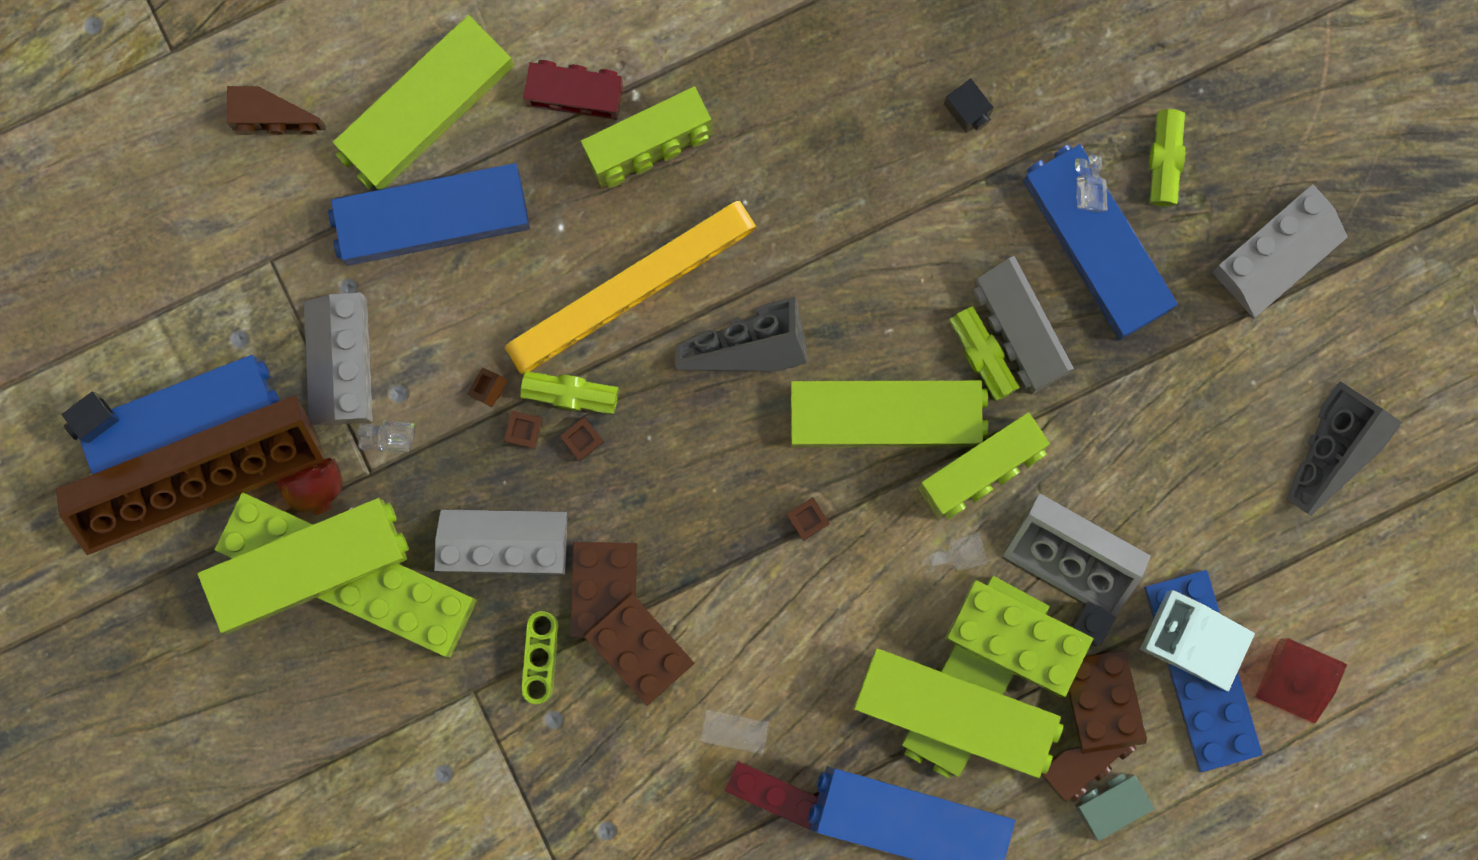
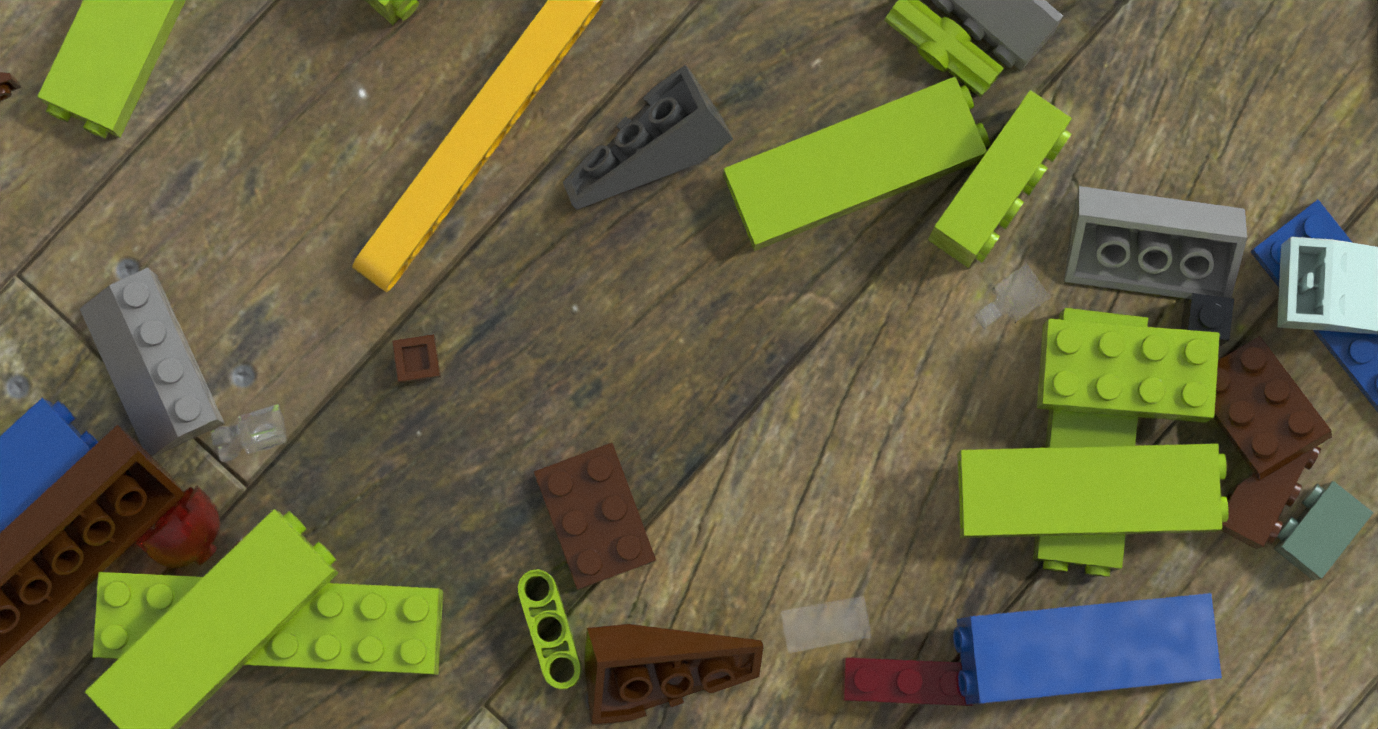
camera: 25 degrees left, 0 degrees up
(429, 214) = (192, 140): blue brick -> none
(487, 387) = (351, 324): reddish brown plate -> none
(501, 542) = (445, 507): light grey slope -> none
(569, 392) = (455, 290): lime piece -> none
(581, 439) = (493, 341): reddish brown plate -> none
(597, 711) = (648, 666): none -> reddish brown wedge
(638, 648) = (667, 569): reddish brown plate -> none
(808, 519) = (810, 329): reddish brown plate -> none

